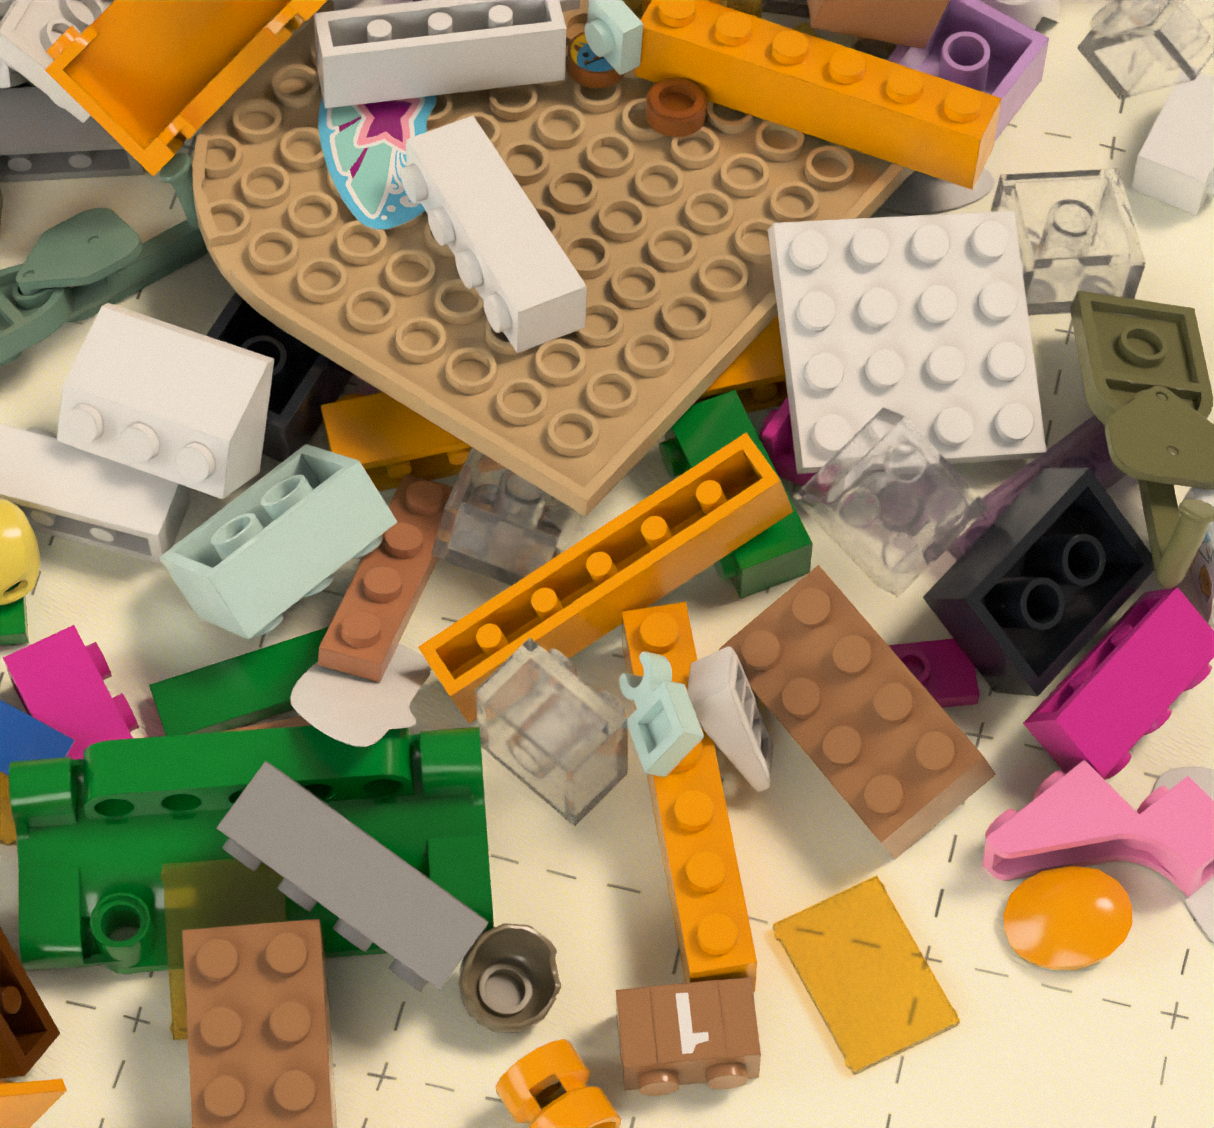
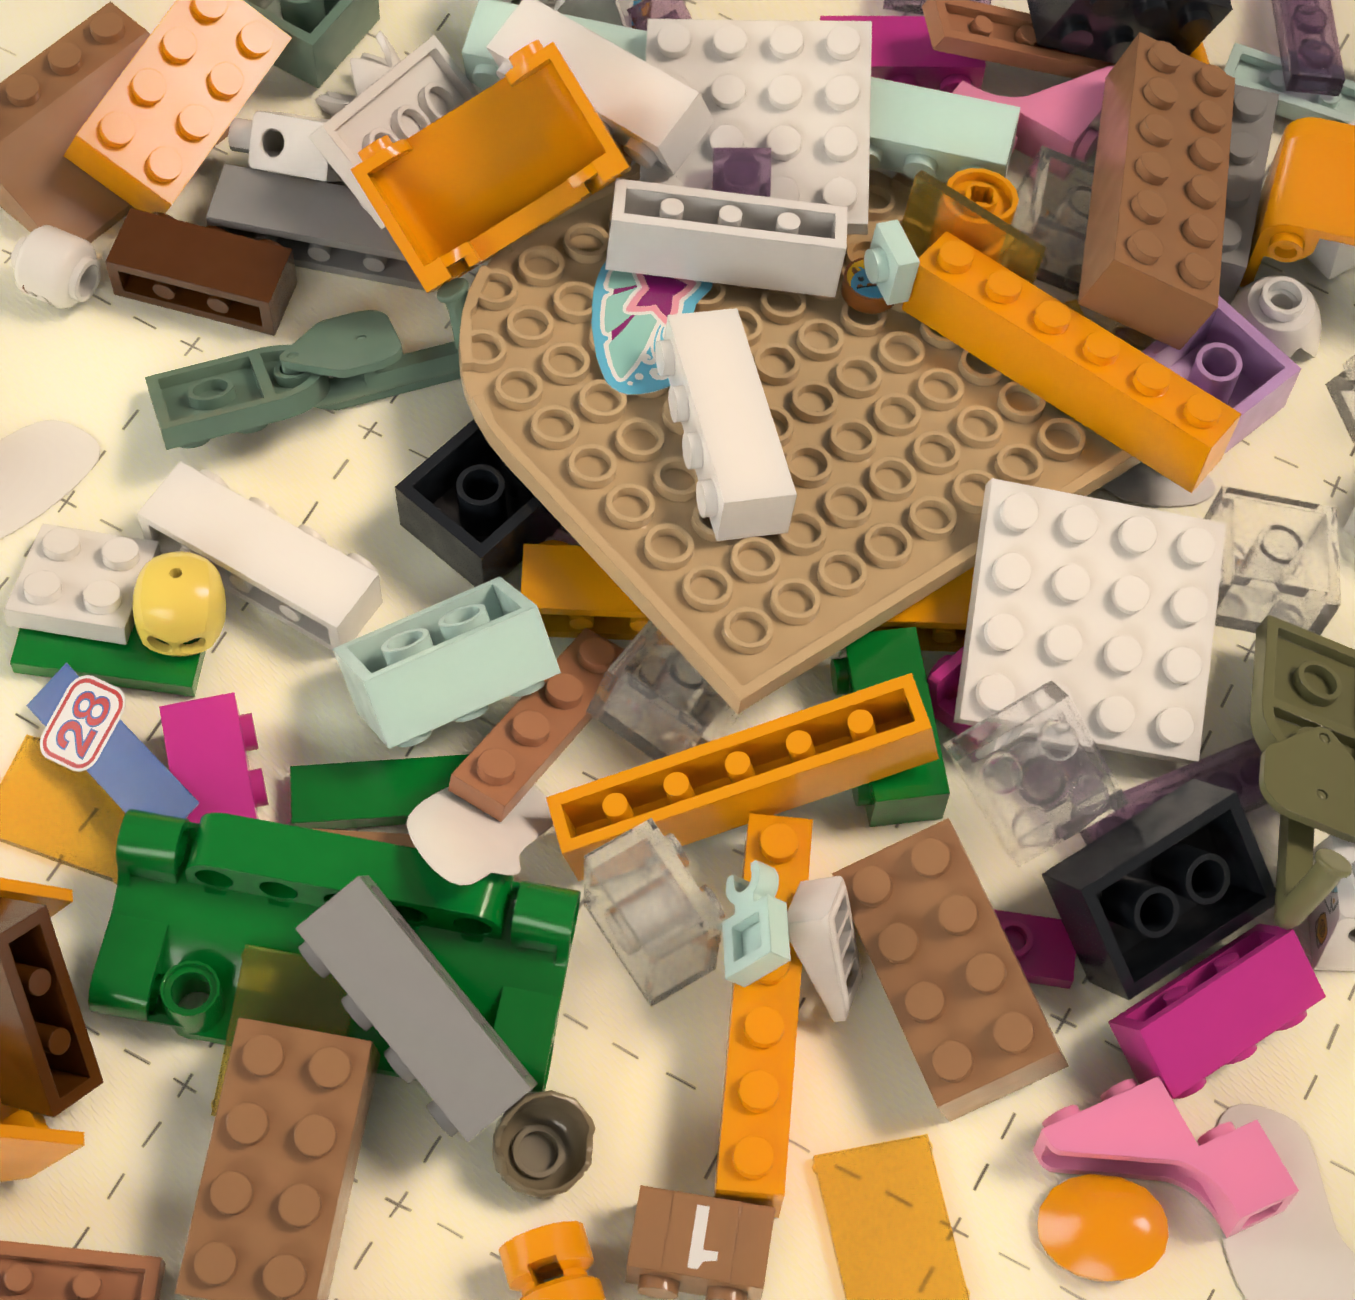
camera: 10 degrees right, 0 degrees up
(167, 402) = (380, 505): white slope -> none
(676, 107) = (932, 348): dark orange tile -> none

